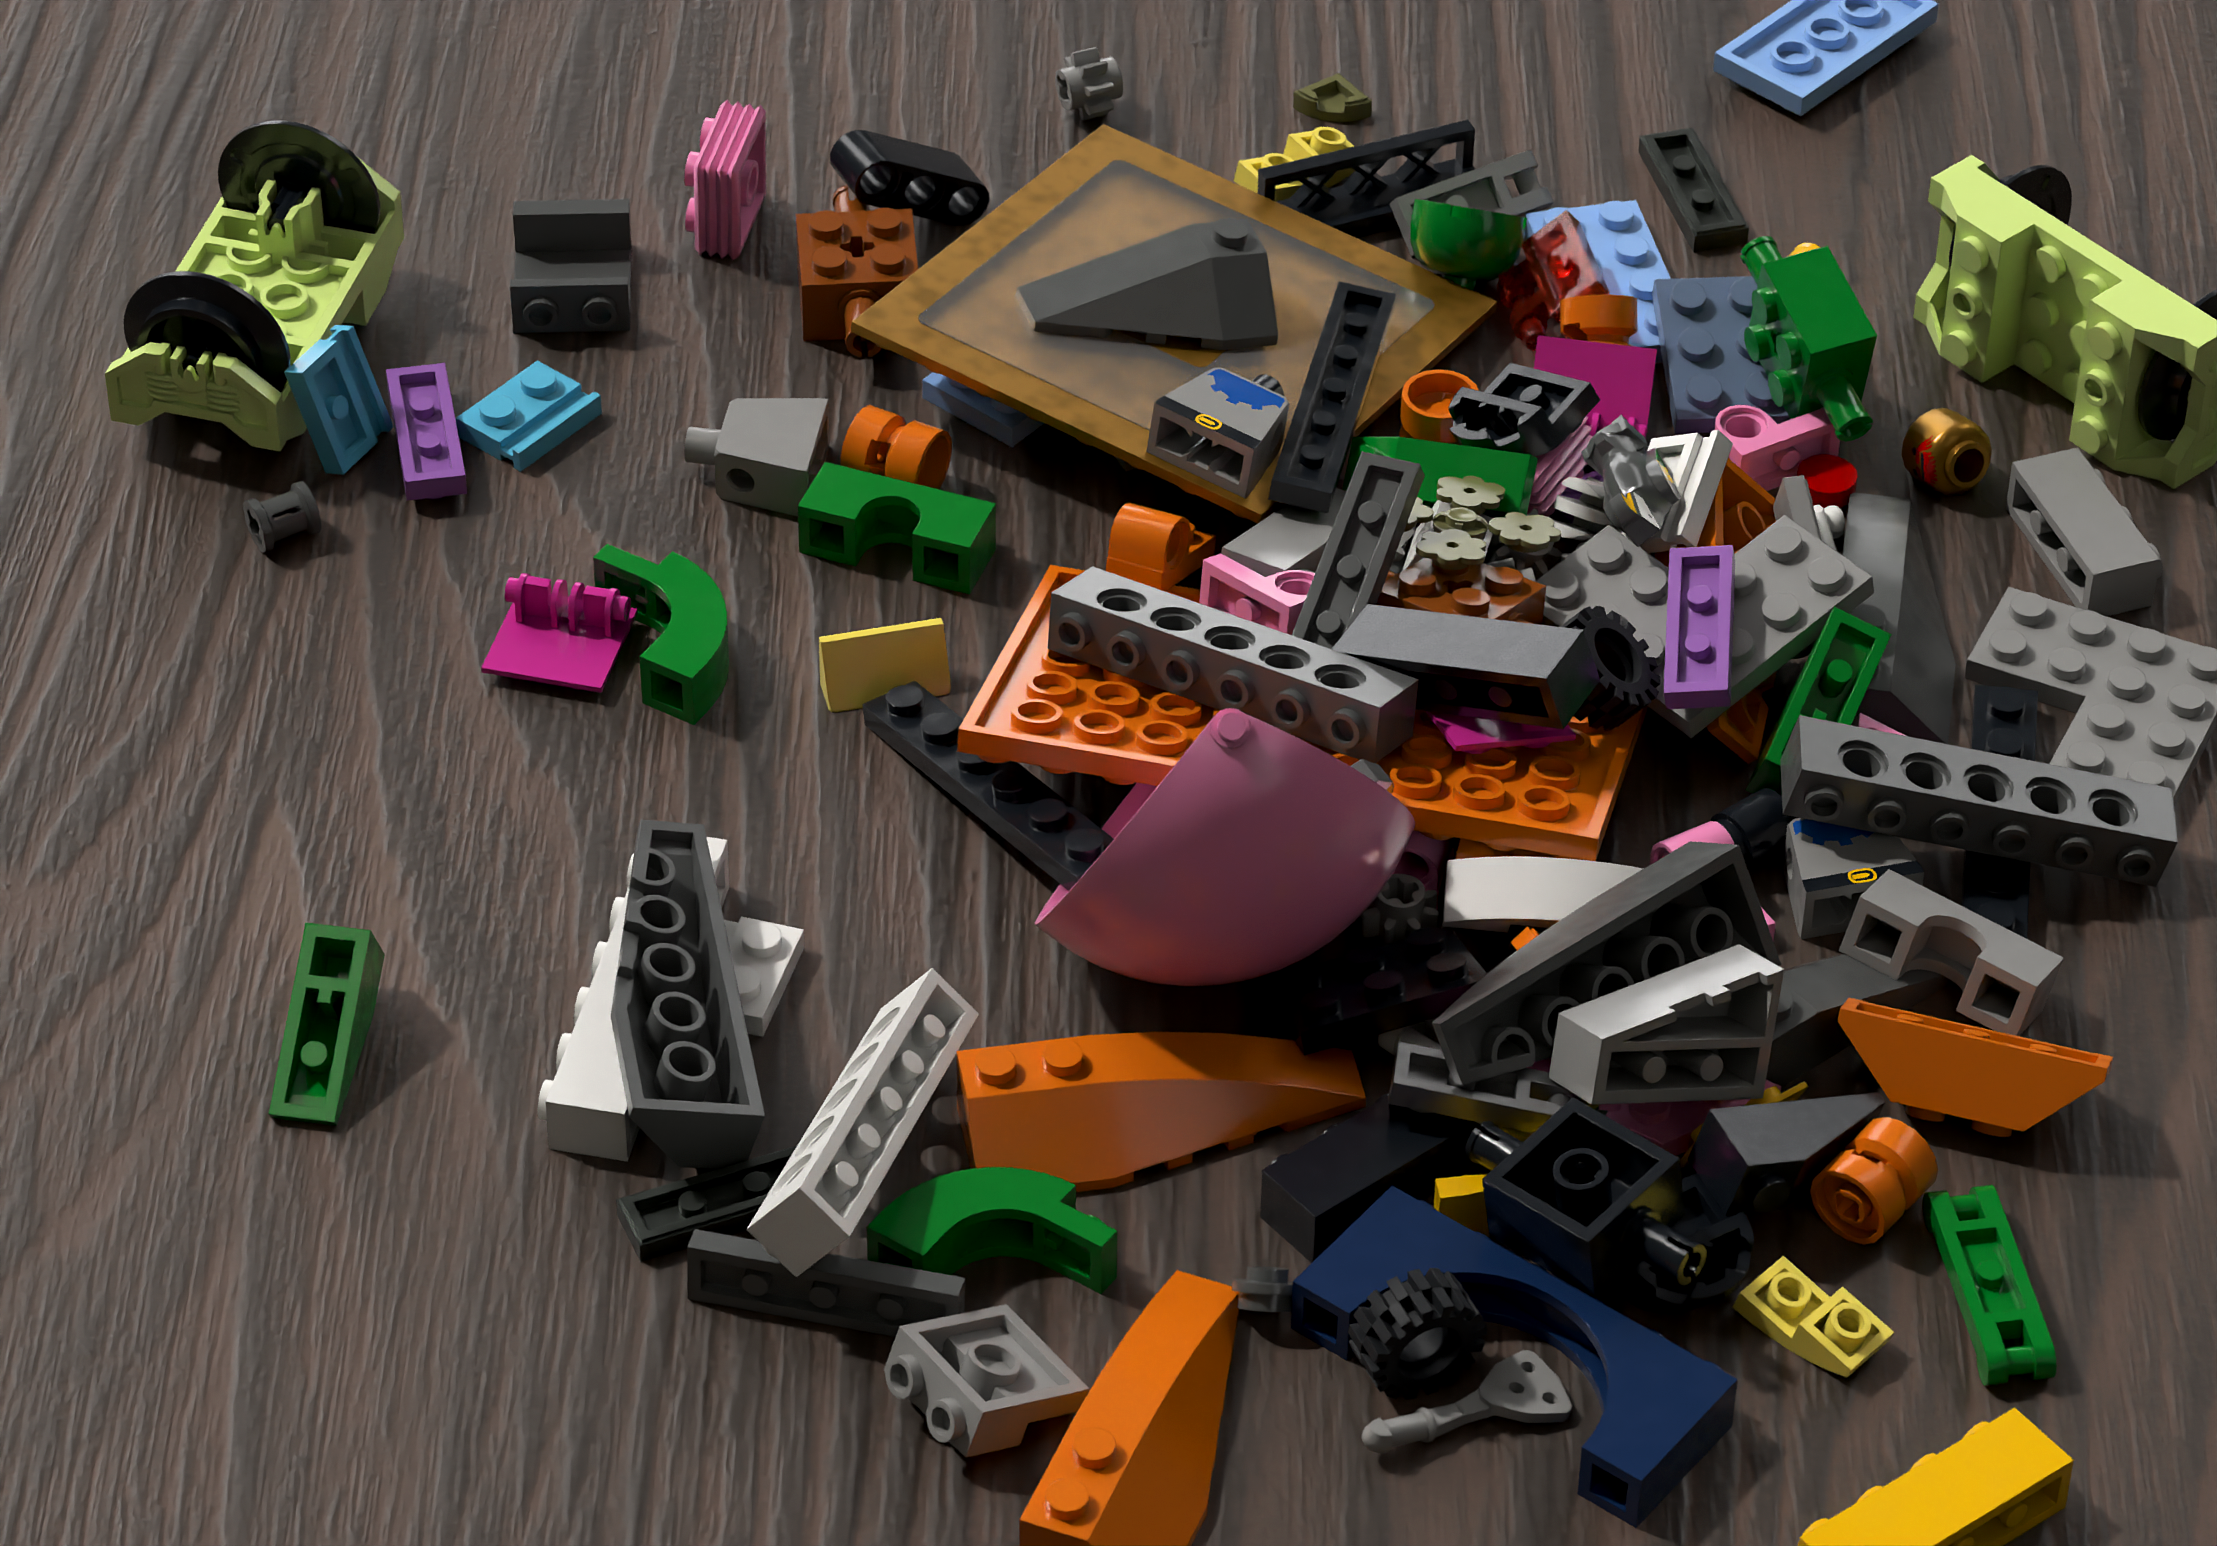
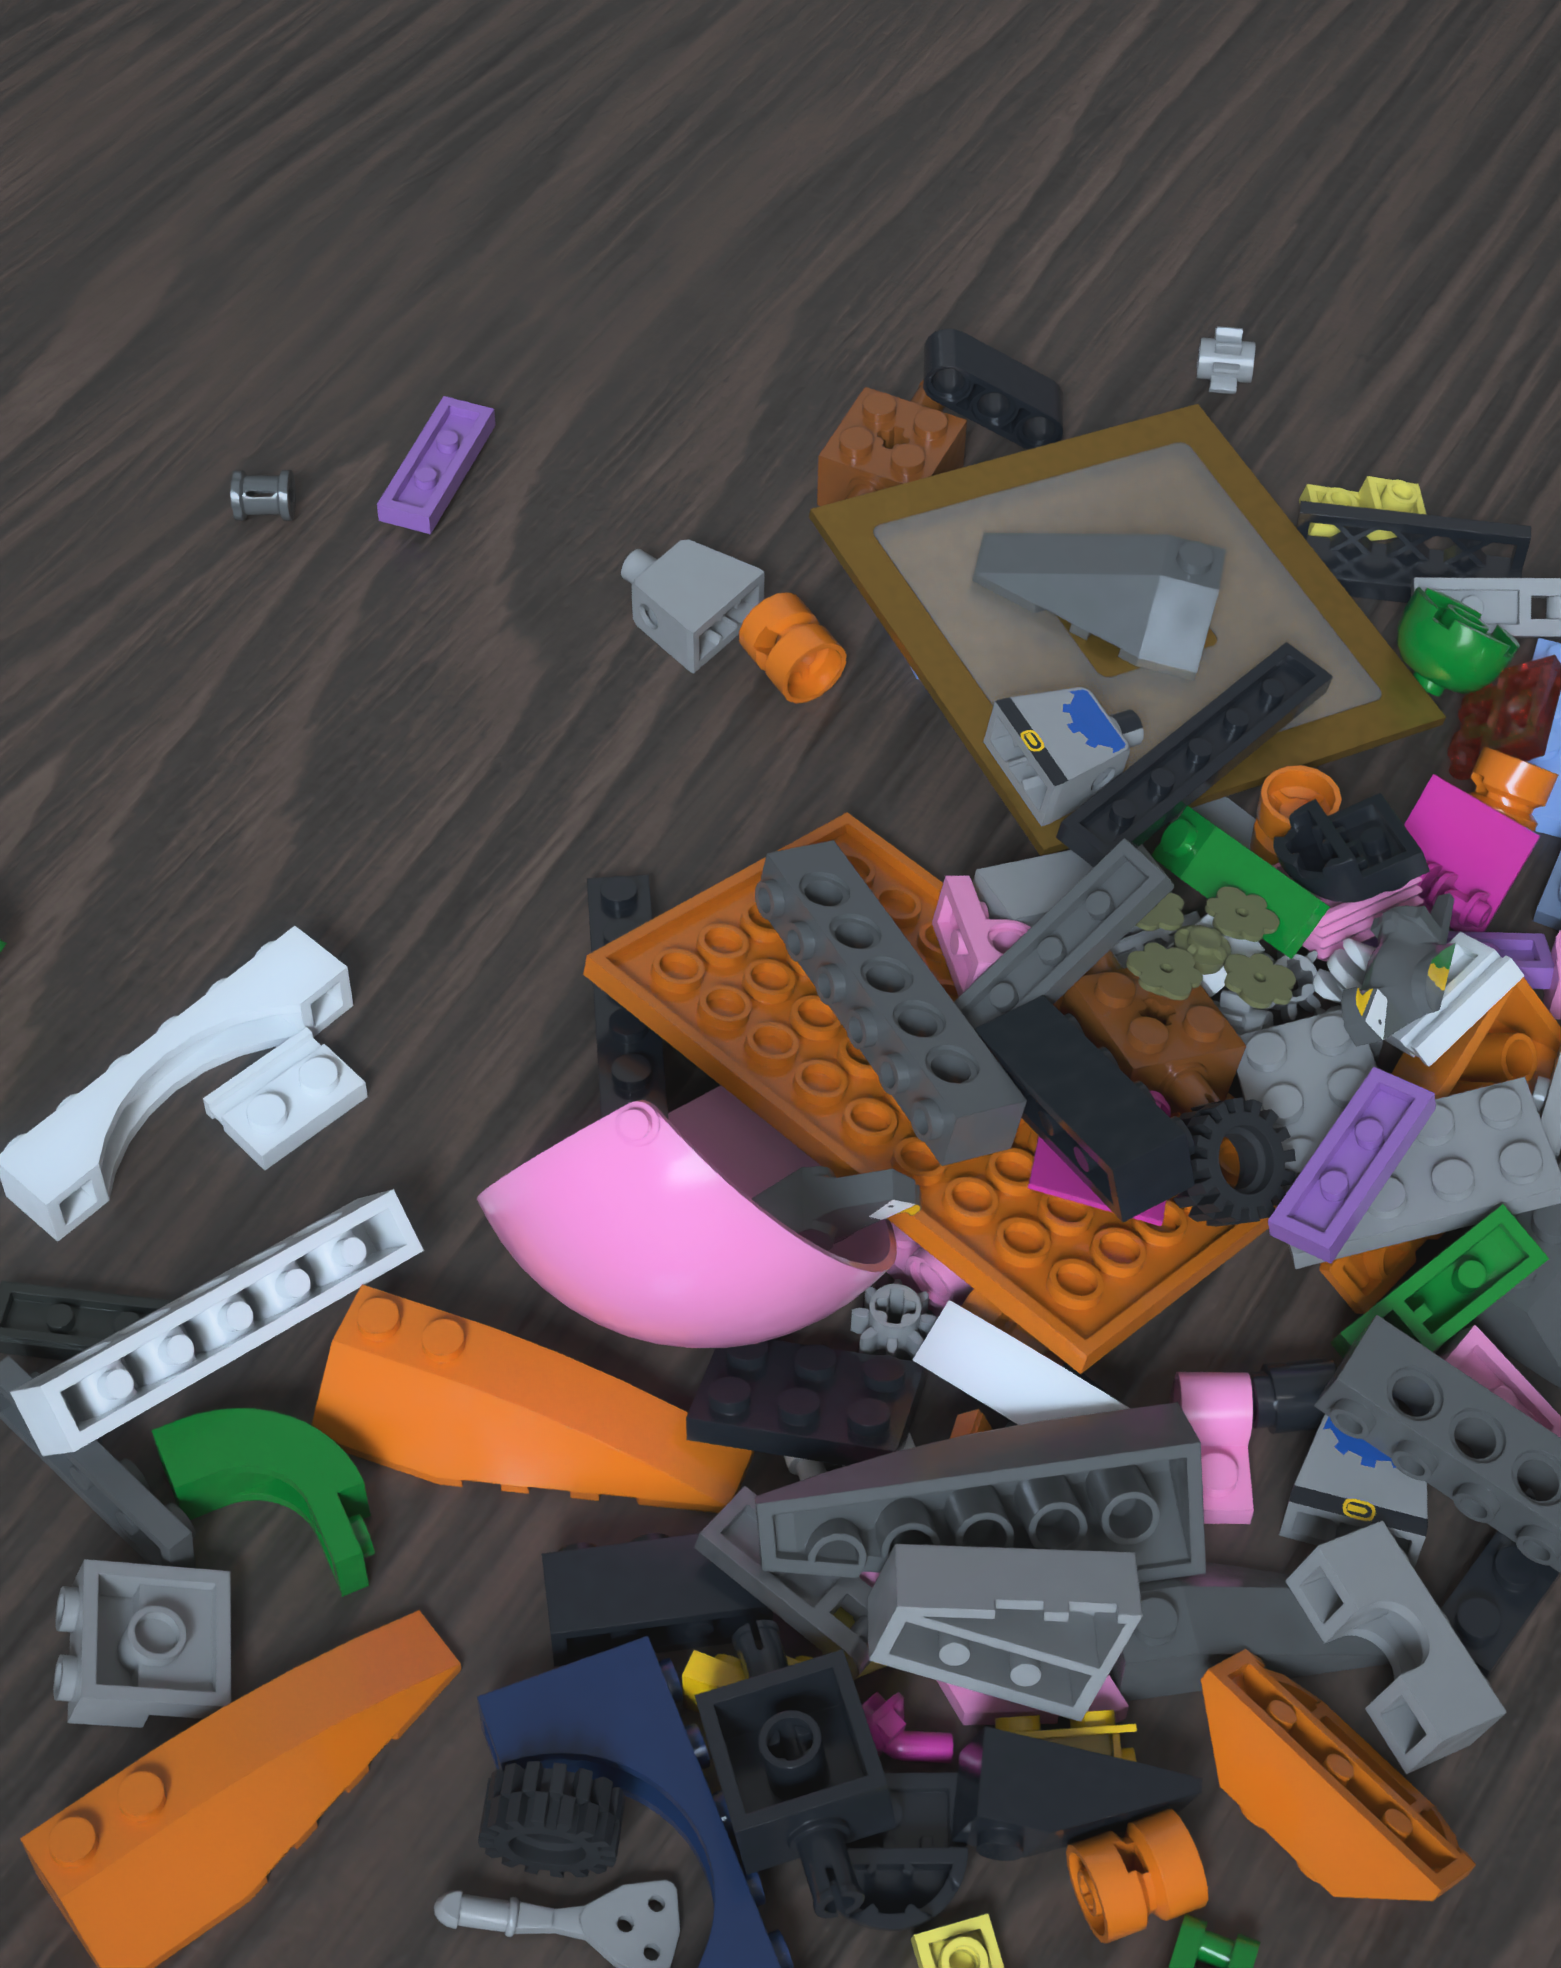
camera: 30 degrees right, 10 degrees up
(279, 262) = (346, 312): piece -> none
(338, 399) = (370, 408): medium azure plate -> none
(528, 415) = (535, 483): medium azure plate -> none
(560, 636) = (394, 700): dark pink hinge -> none
(571, 266) = (671, 365): dark grey panel -> none
(681, 1008) = (158, 1120): dark grey wedge -> none
(690, 659) = (496, 754): green arch -> none
(727, 179) = (840, 332): bright pink brick -> none
(856, 510) = (779, 742): green arch -> none
(875, 660) = (631, 843): light yellow slope -> none
(1156, 546) = (936, 841): orange plate -> none
(1264, 1289) = (465, 1677): dark grey plate -> none
(1332, 100) = (1442, 457): olive tile -> none

